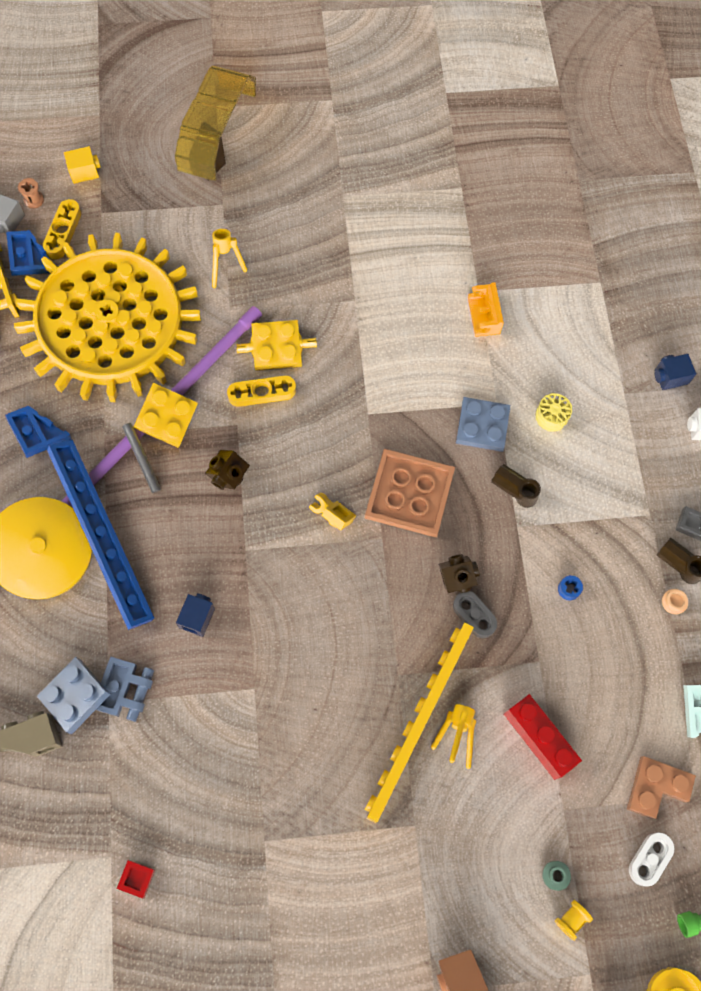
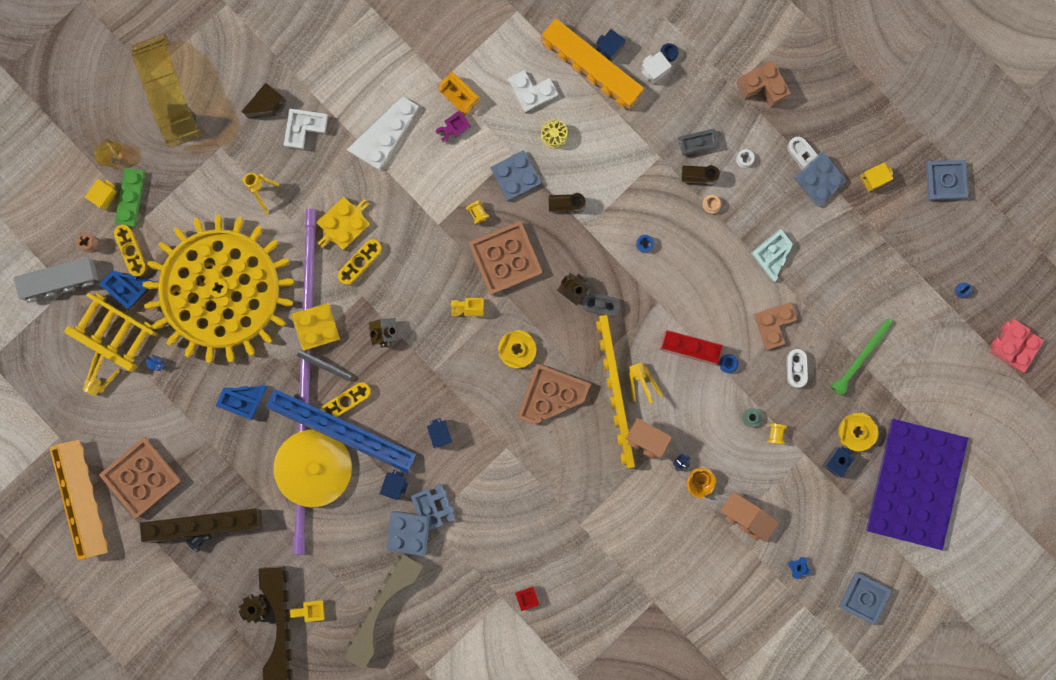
camera: 35 degrees left, 15 degrees up
(103, 632) = (394, 485): none -> dark blue brick
(104, 186) = (130, 197): none -> bright green plate
(119, 136) = (107, 152): none -> clear yellow head
(151, 506) = (336, 413): none -> yellow beam
(293, 193) = (264, 103): none -> dark brown slope
(312, 231) = (300, 122): none -> white plate
(347, 668) = (551, 394): none -> nougat plate
(353, 579) = (512, 339): none -> yellow plate
(382, 297) = (384, 134): none -> white wing
(417, 428) = (477, 212): none -> yellow bush
(418, 800) = (648, 439): none -> nougat brick
(435, 862) = (681, 462): none -> dark blue plate
(440, 905) = (701, 482): none -> light orange hair
(460, 335) = (455, 125): none -> magenta plate
(558, 365) = (529, 95): none -> white plate
(572, 790) = (728, 363): none -> blue plate
(643, 377) = (591, 64): none -> light orange brick

